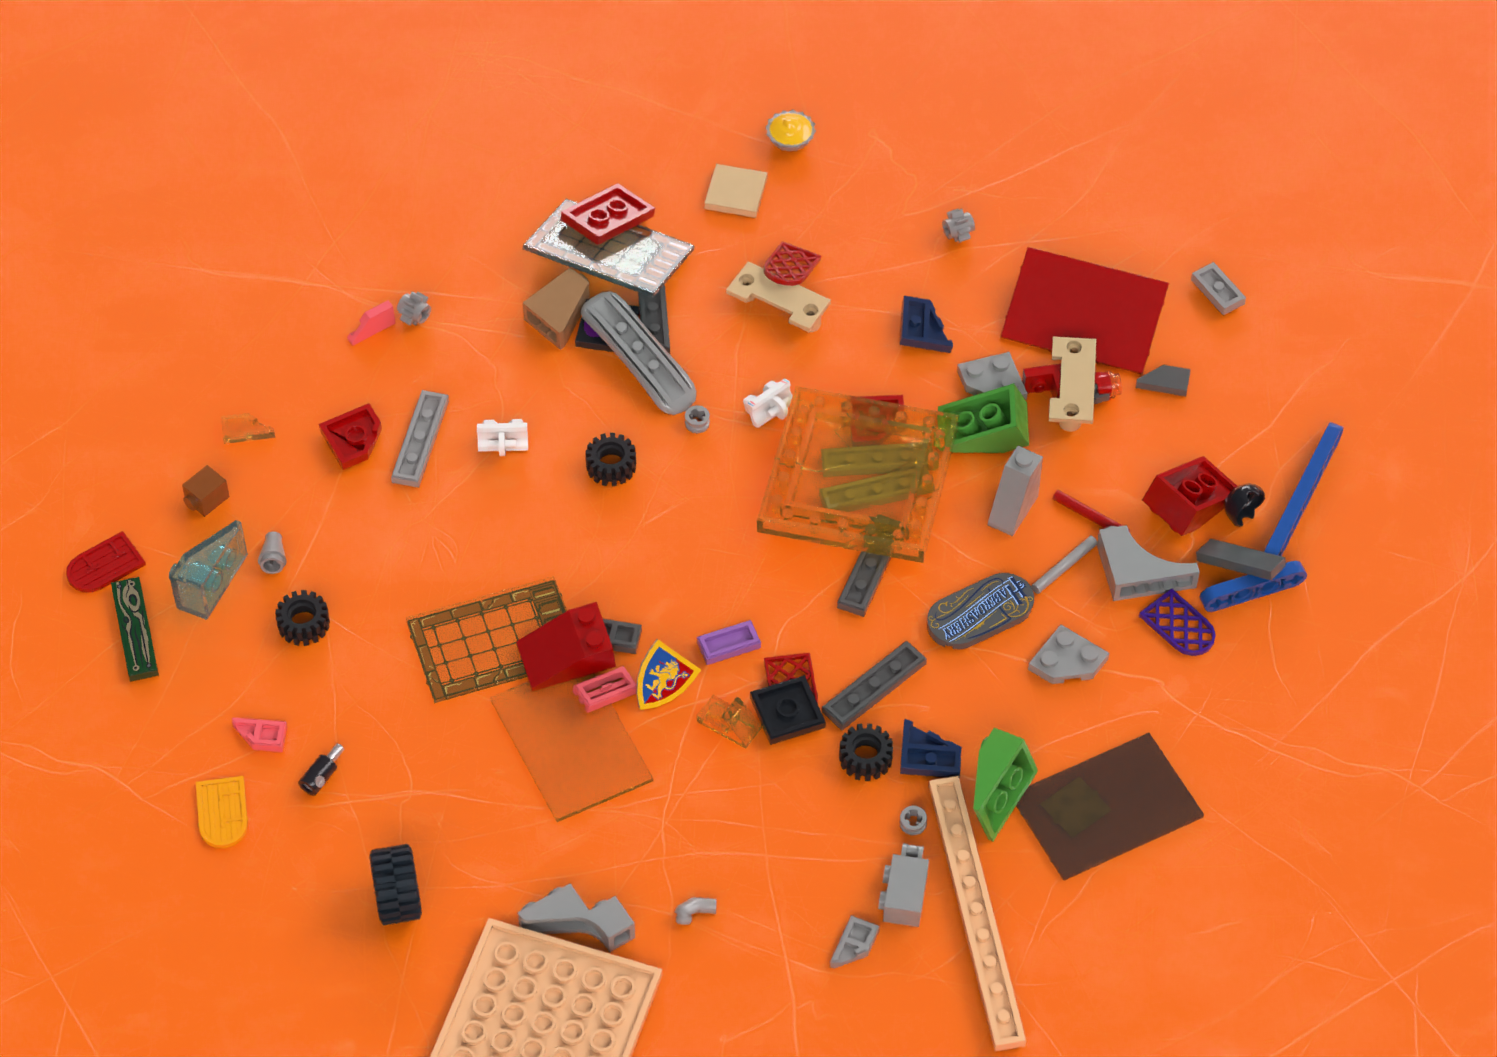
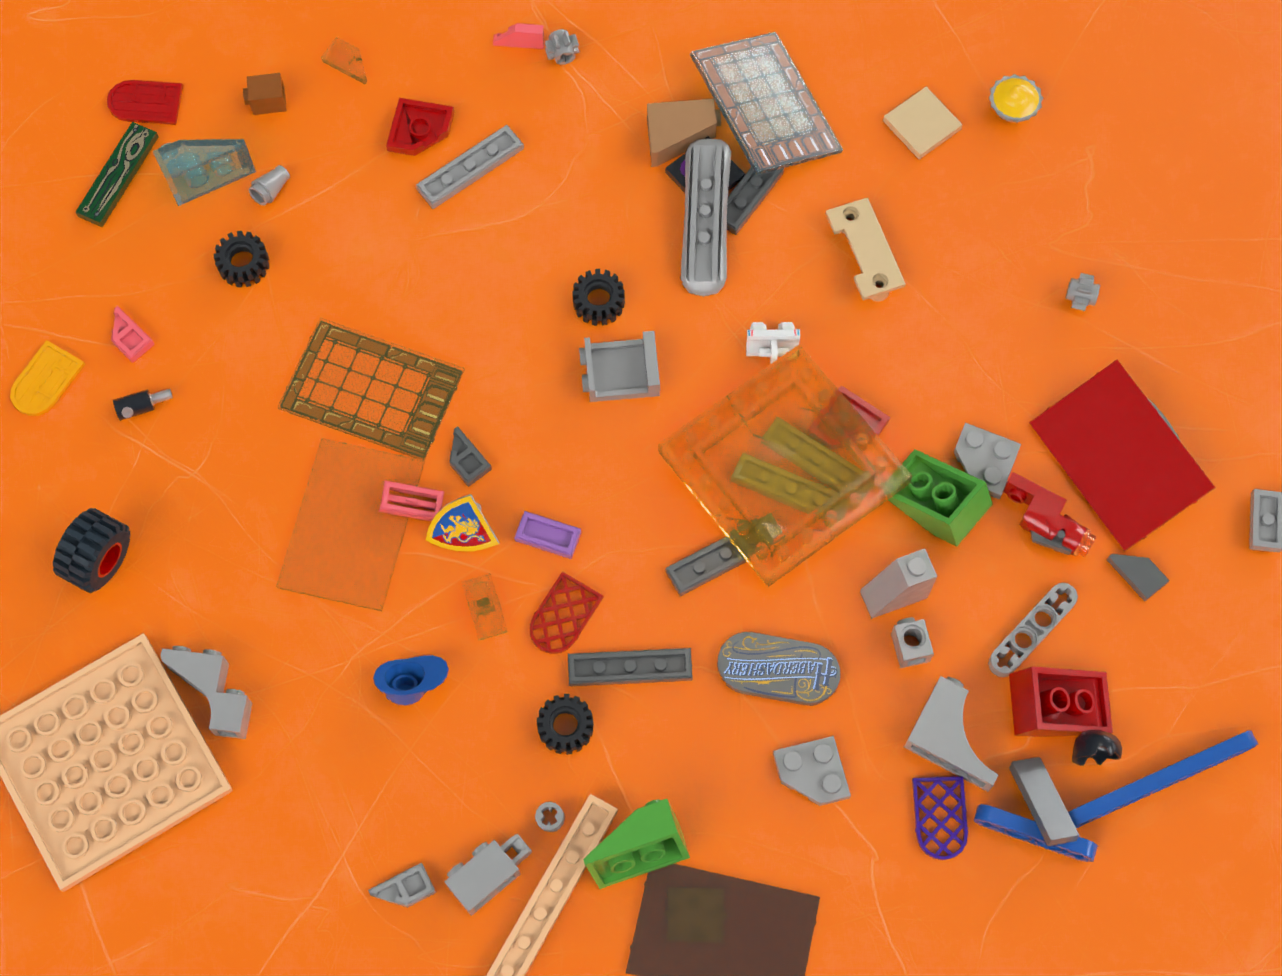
camera: 40 degrees right, 15 degrees up
(502, 436) = (529, 214): white hips -> none
(567, 648) = (410, 443): red slope -> none
(607, 214) = (790, 70): red plate -> none
(676, 494) = (621, 369): none -> light grey panel
(692, 424) = (710, 309): light grey bush -> none
(692, 906) = (307, 749): light grey arm -> none
(725, 800) = (409, 679): none -> blue piece
(787, 710) = (536, 634): black tile -> none
(789, 250) = (903, 243): red window -> none
(922, 326) = (966, 364): dark blue wing -> none
(928, 754) = (614, 766): dark blue wing -> none
(1061, 536) = (907, 654): none -> light grey brick
(1064, 564) = (890, 680): light grey bar -> none
(1076, 382) = (1047, 518): tan brick -> none
(1084, 510) = (956, 650): red bar -> none
(1132, 464) = (1032, 629): none -> light grey beam

